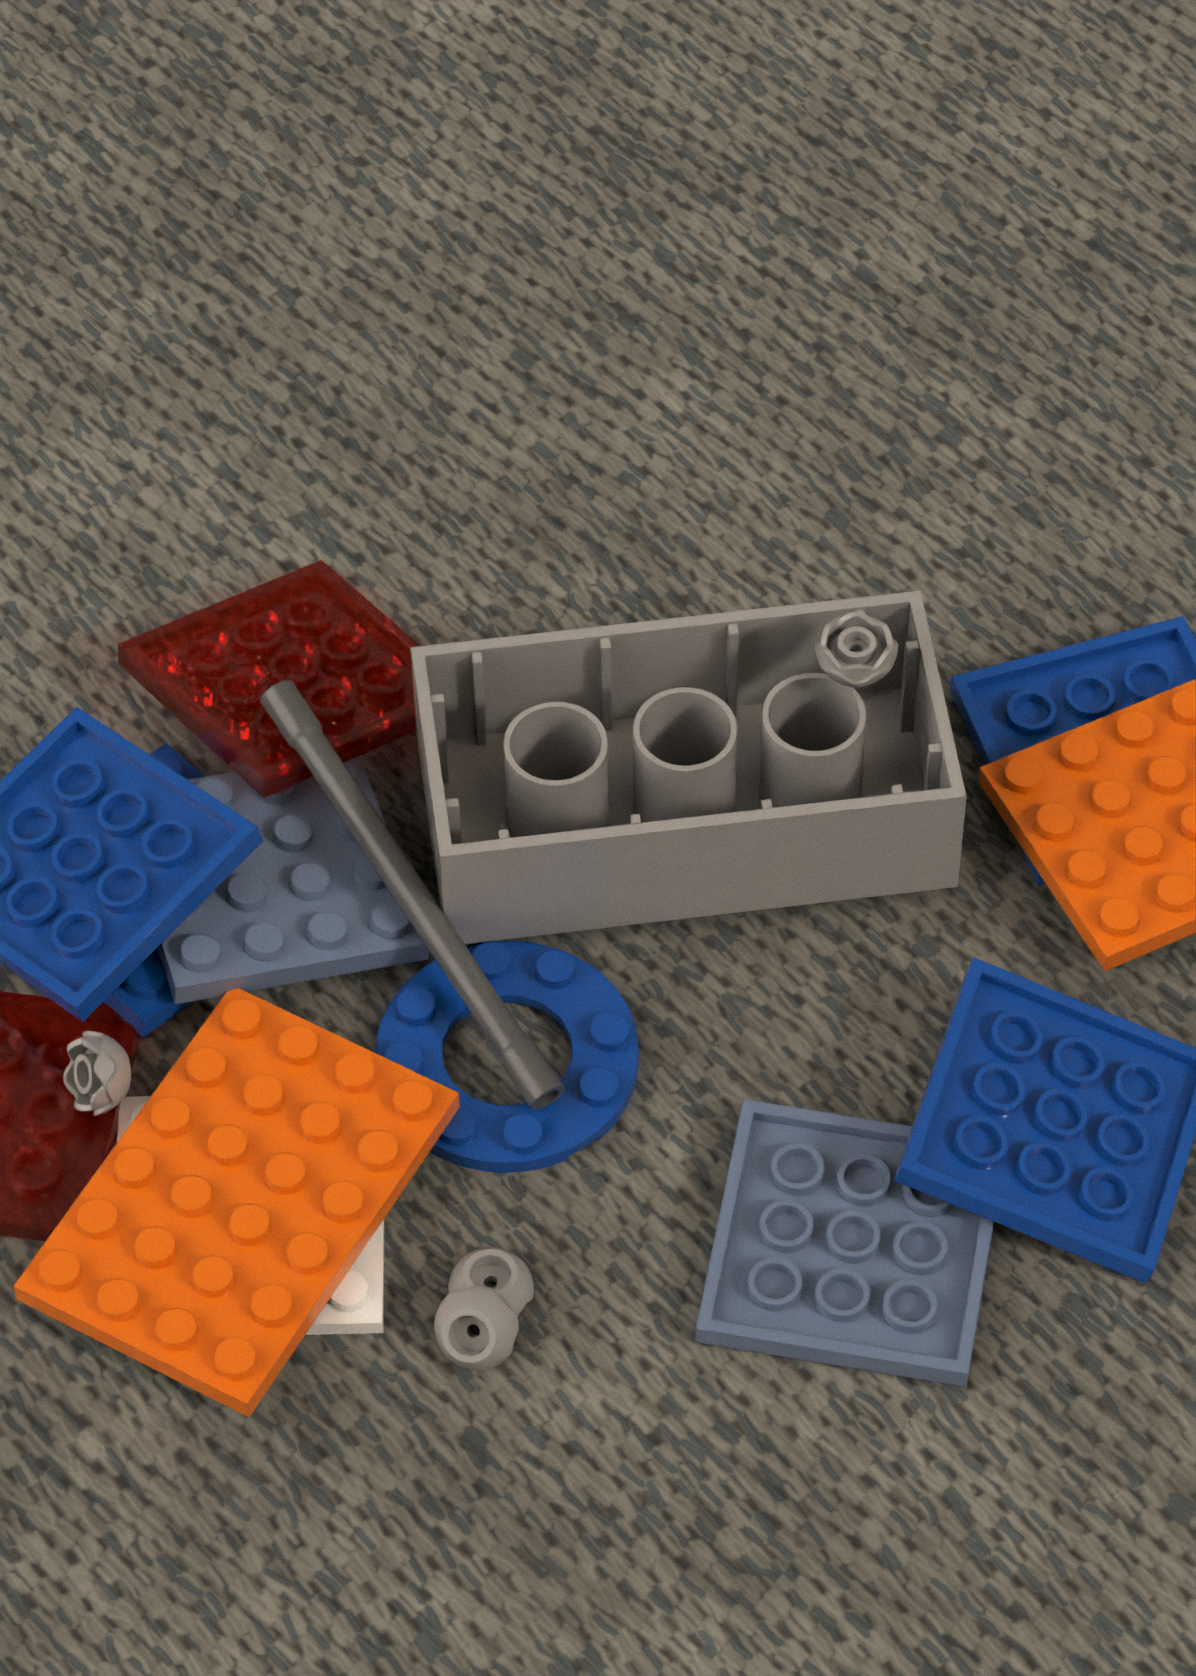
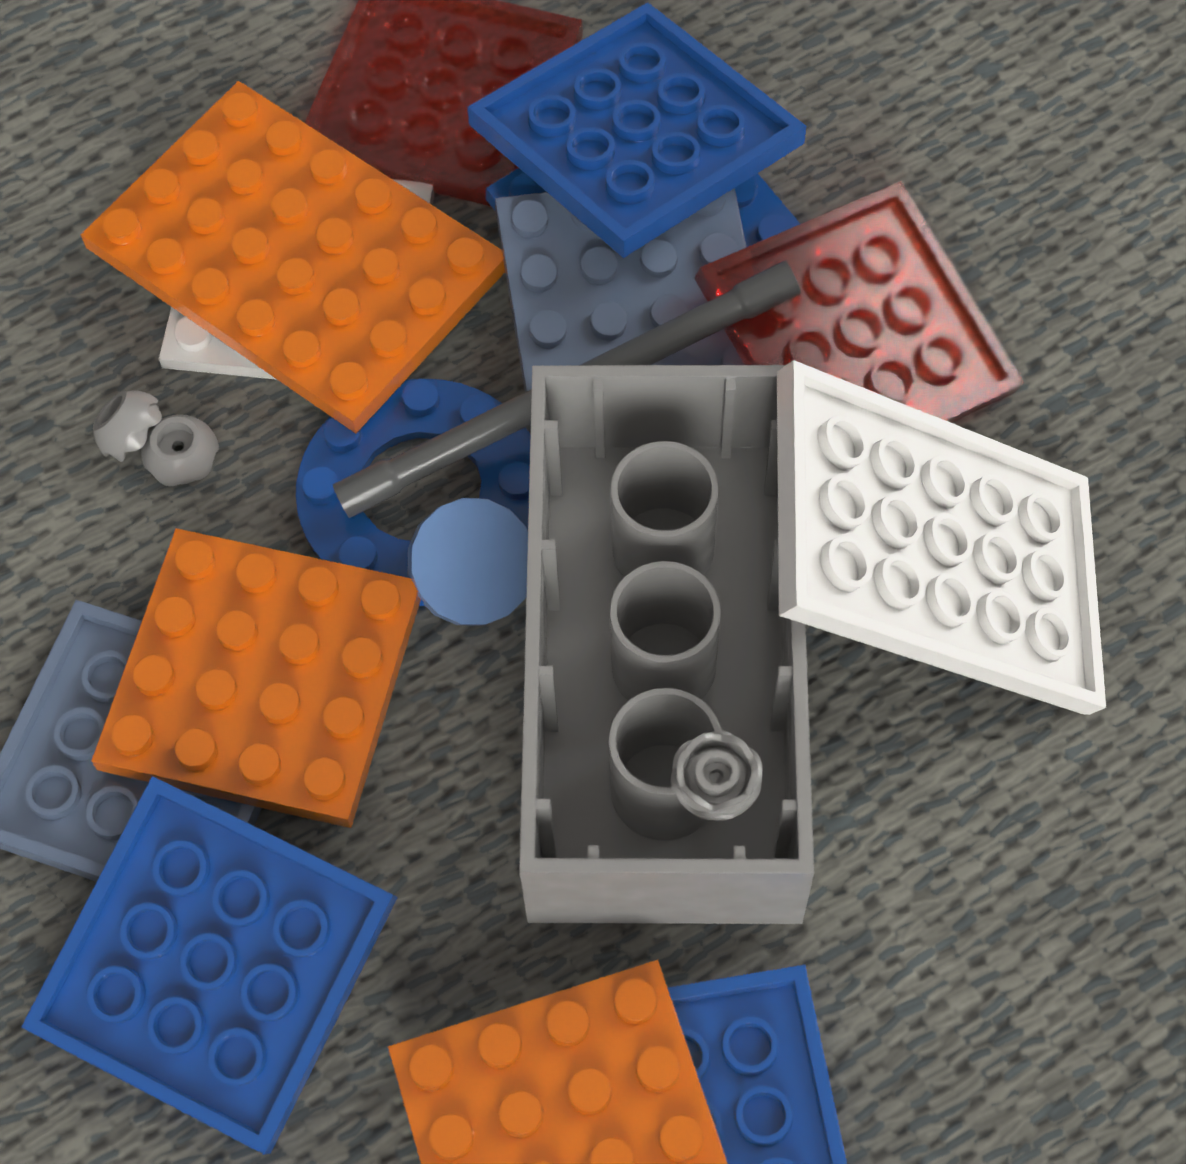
camera: 100 degrees right, 10 degrees up
(97, 1072) = (431, 147): light grey plate -> none
(553, 567) = (935, 542): none -> white plate
(602, 970) = (470, 561): none -> medium blue tile
(755, 1135) = (260, 677): none -> orange plate

